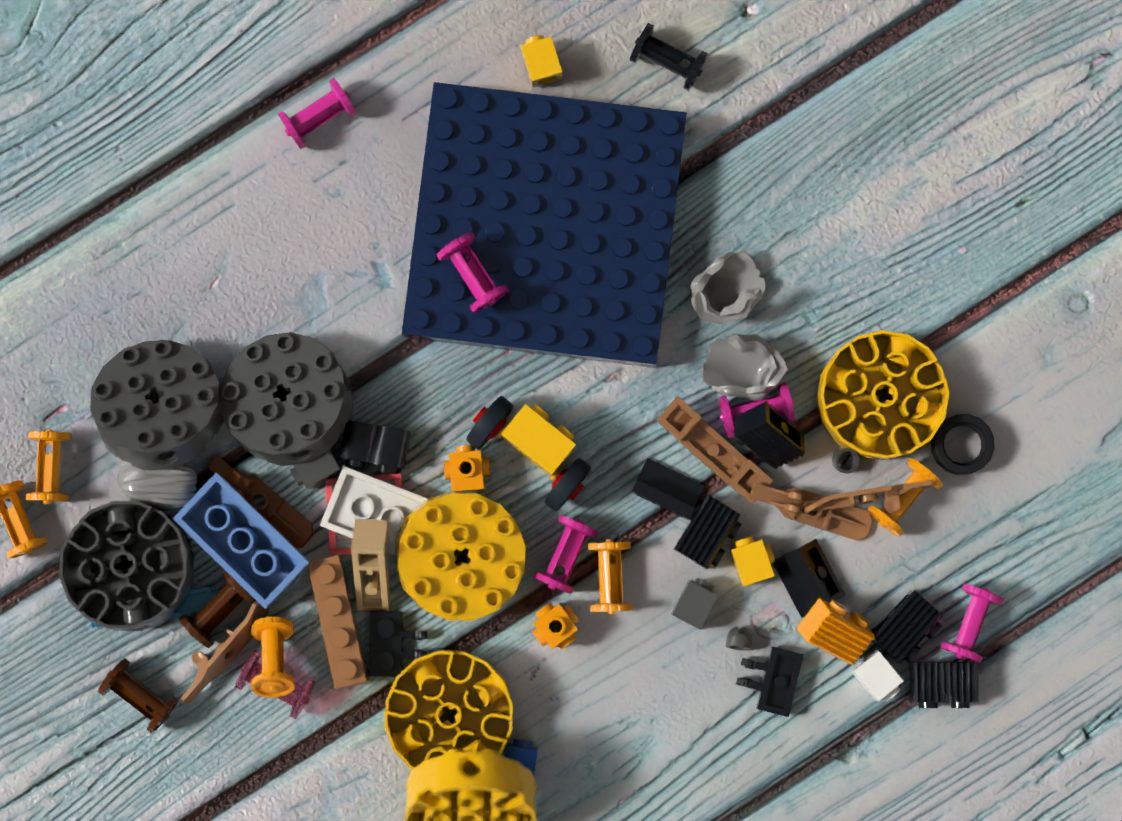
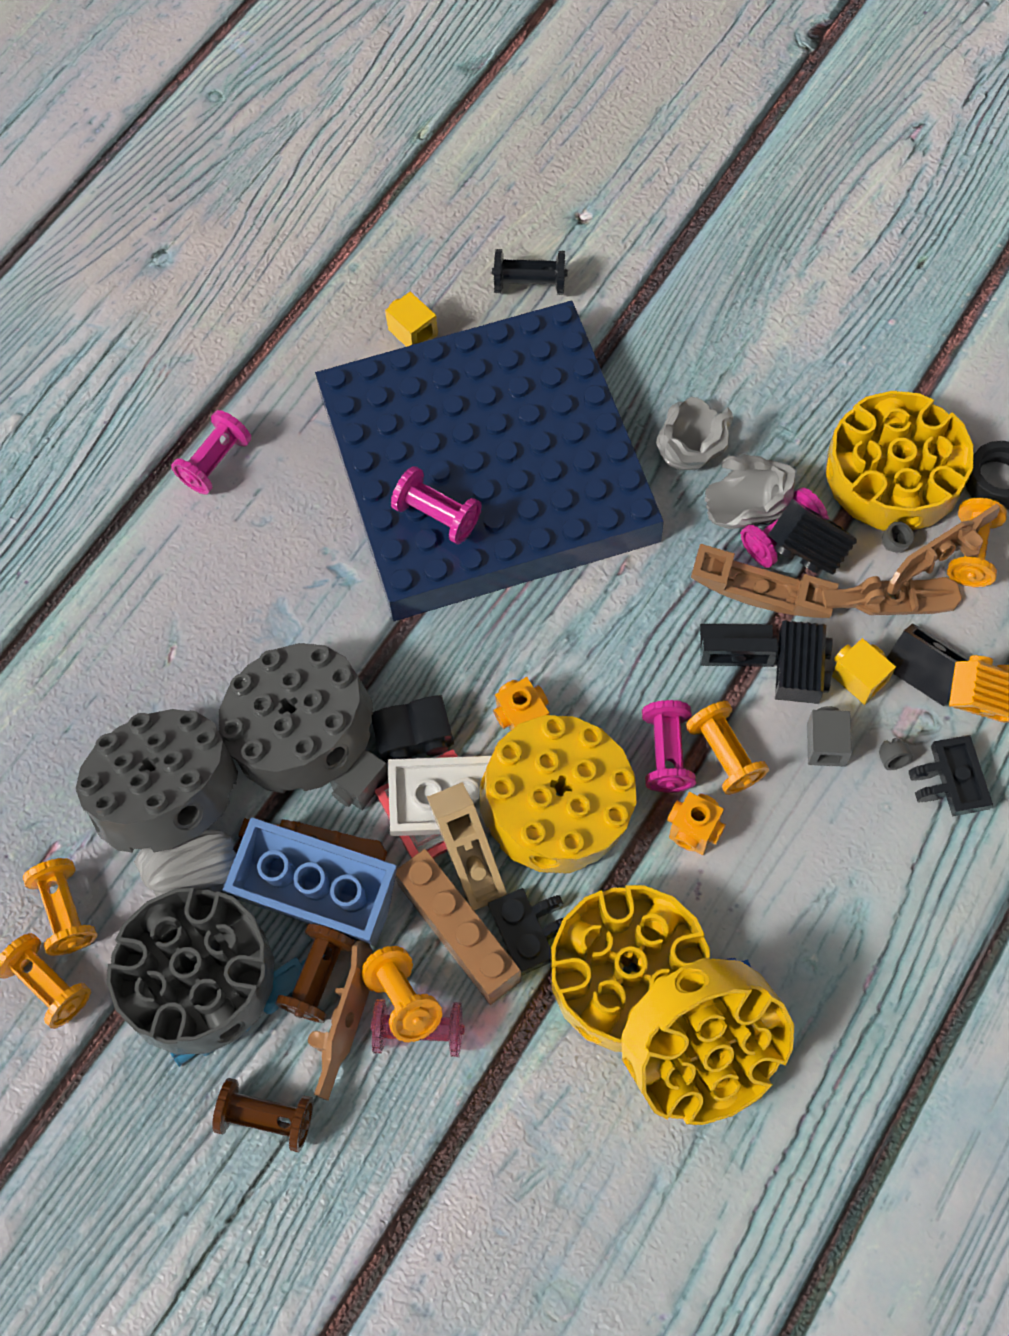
camera: 20 degrees left, 20 degrees down
(537, 441) = (580, 647): brick -> none

